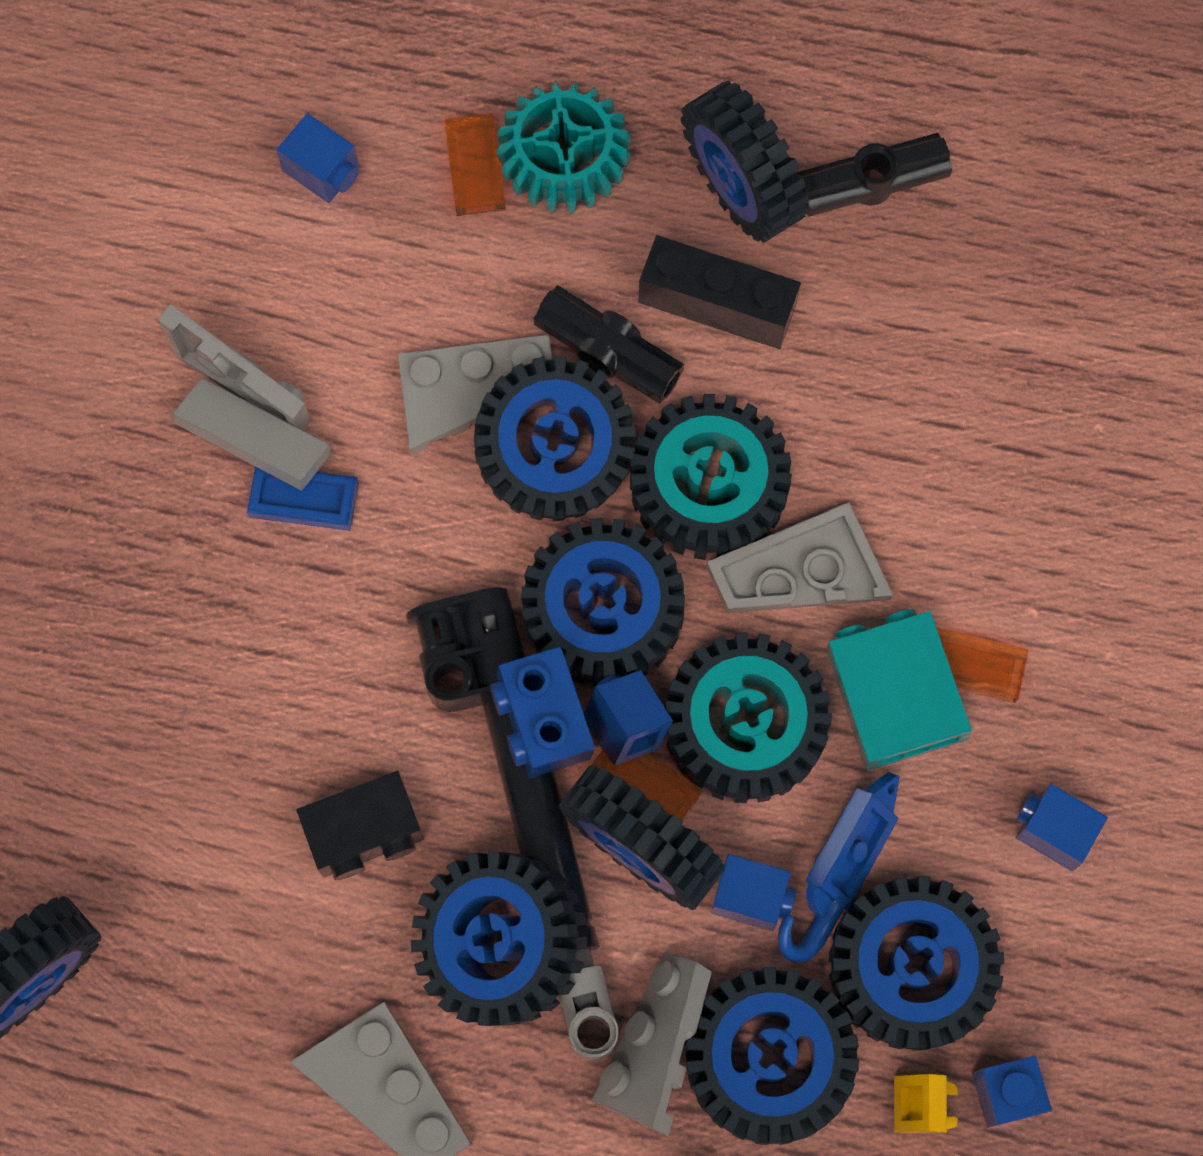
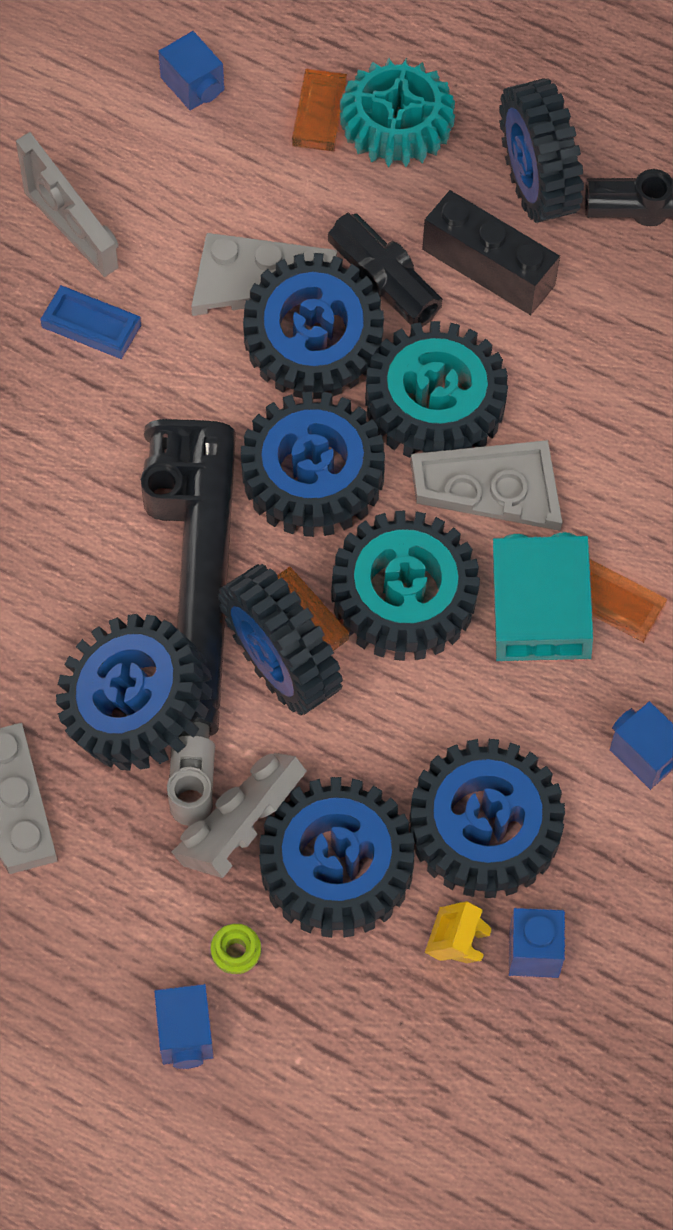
camera: 15 degrees right, 10 degrees down
(251, 434) = (65, 260): light grey tile -> none
(360, 826) = (50, 579): black brick -> none
(542, 712) = (230, 521): blue brick -> none
(627, 717) = (302, 552): blue brick -> none
(753, 893) = (363, 723): blue brick -> none
(843, 865) = (449, 722): blue plate -> none

